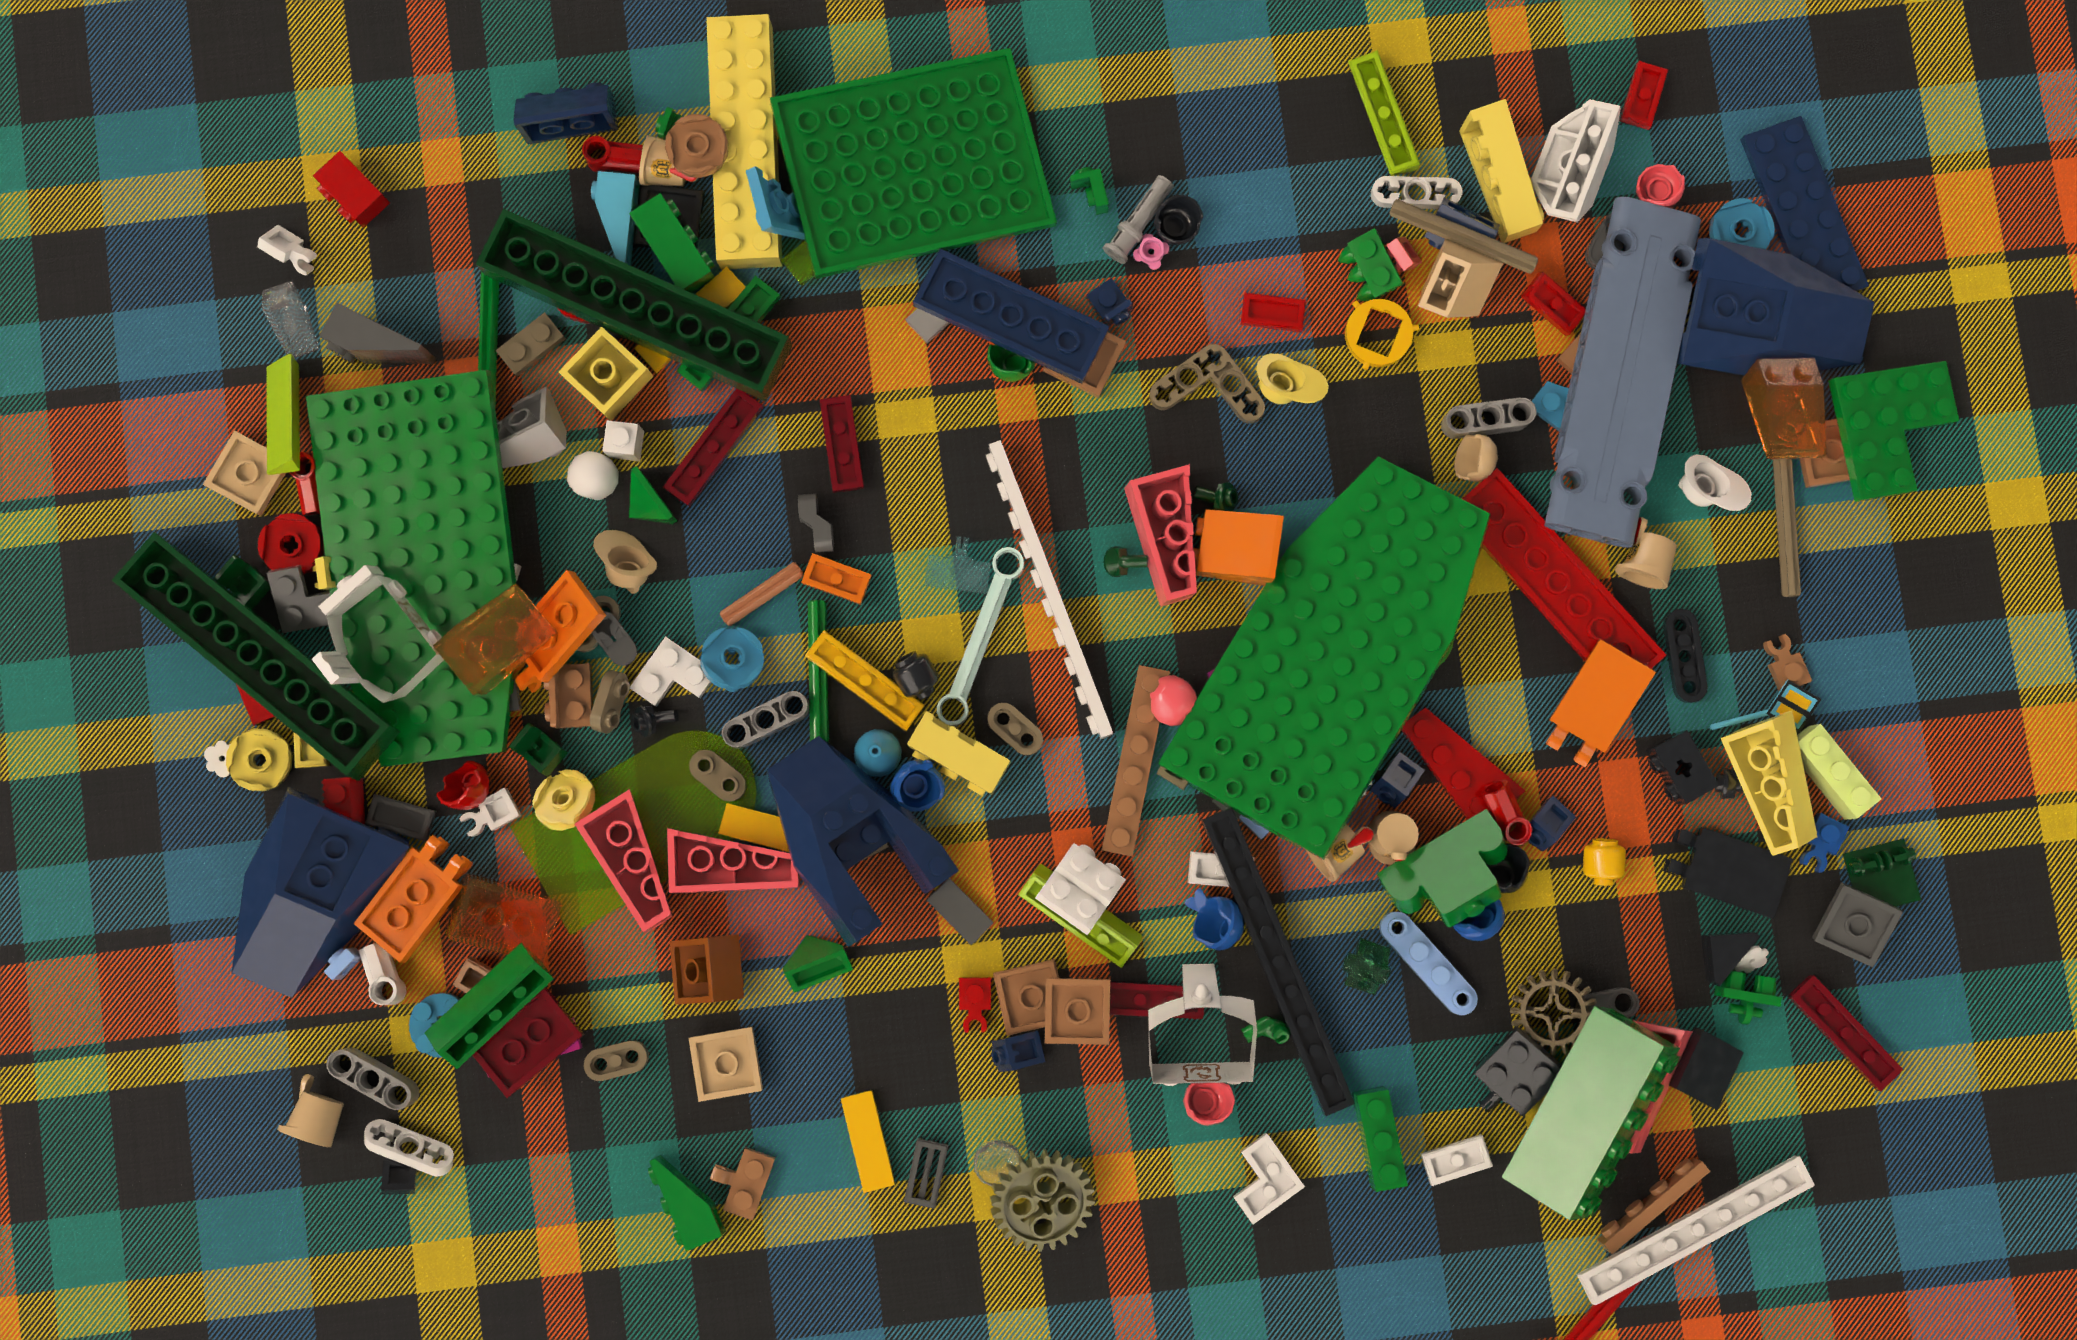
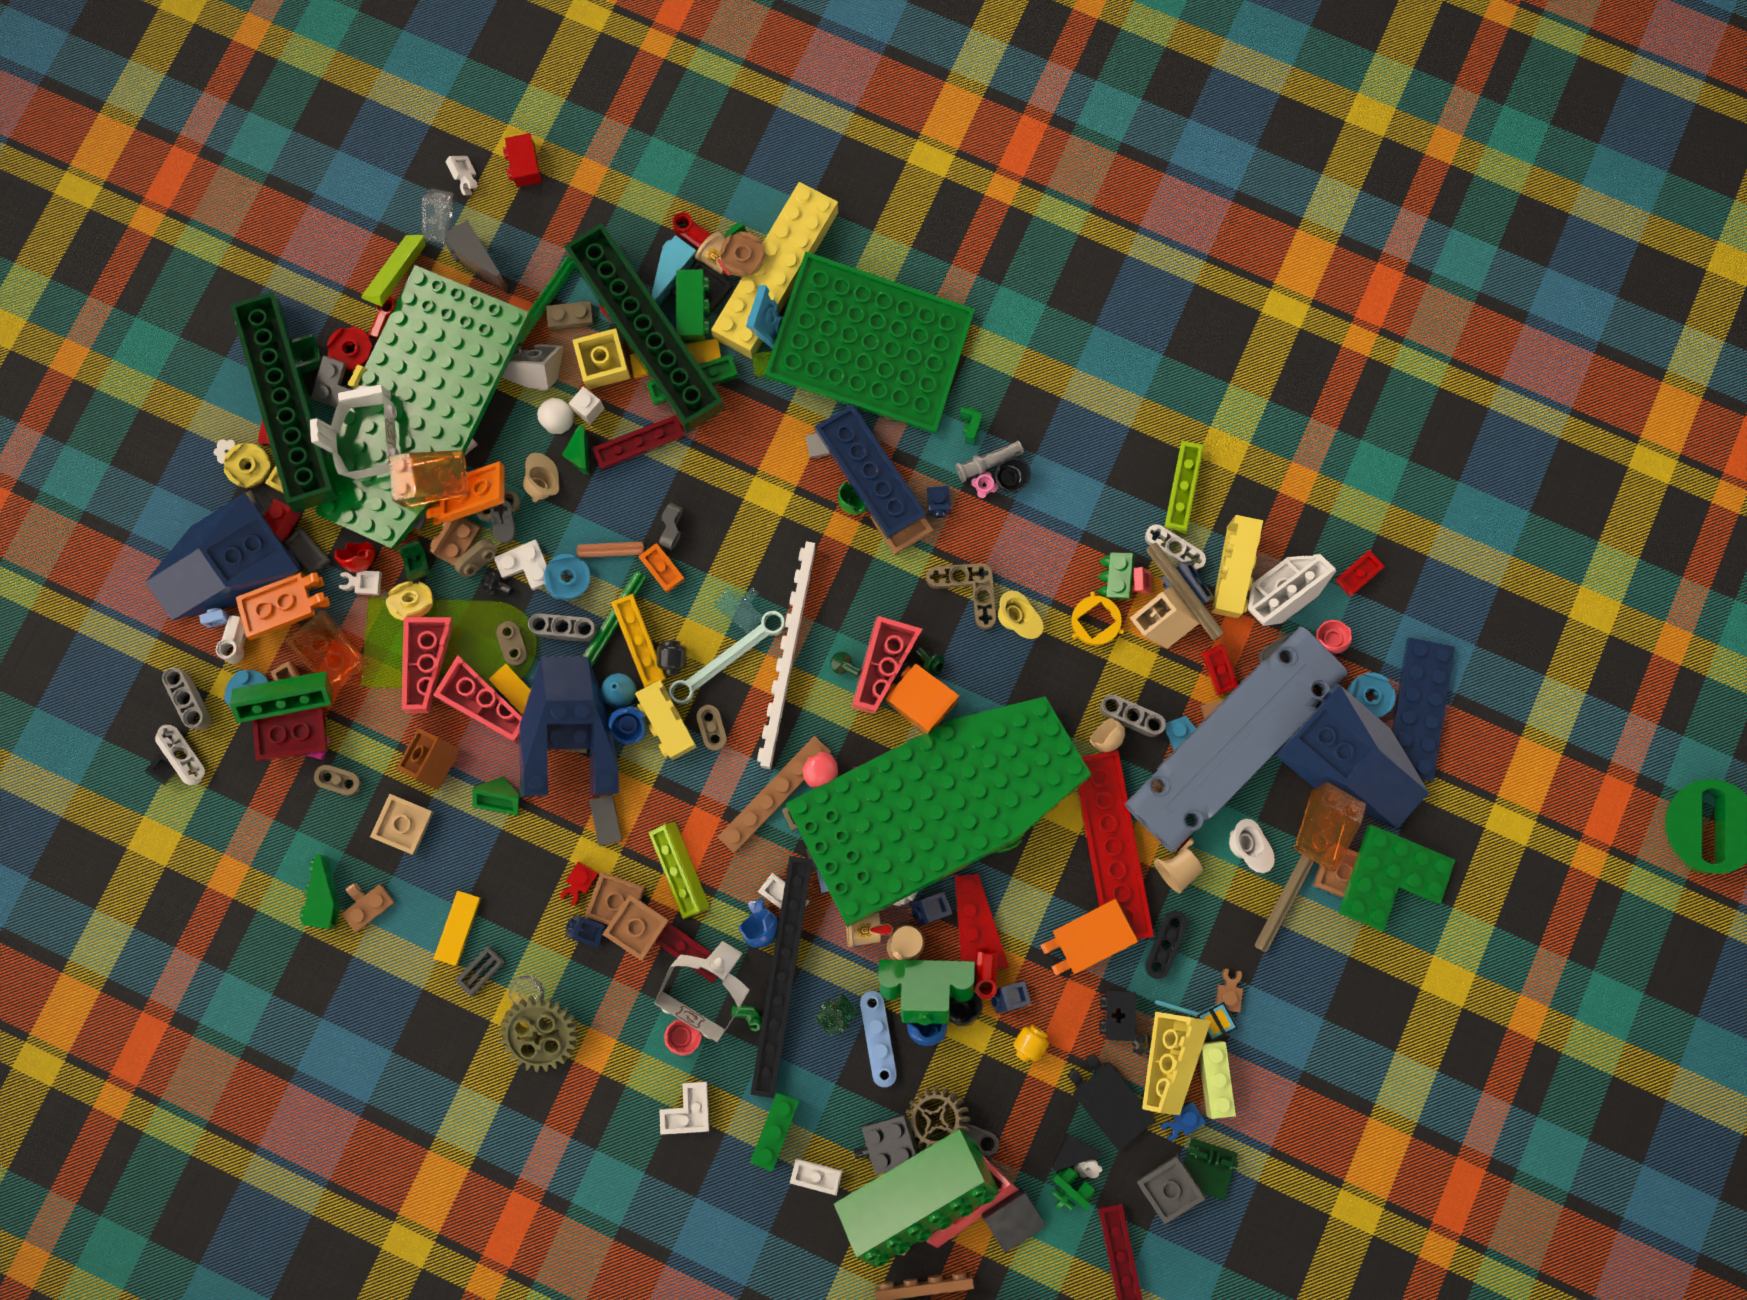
camera: 35 degrees right, 5 degrees down
(243, 475) = (347, 288): tan plate -> none
(313, 1117) = (136, 700): tan hat -> none
(566, 113) = (678, 190): dark blue slope -> none
(841, 443) = (717, 487): dark red plate -> none
(1081, 887) = (688, 851): white plate -> none
(1273, 312) = (1037, 568): red tile -> none

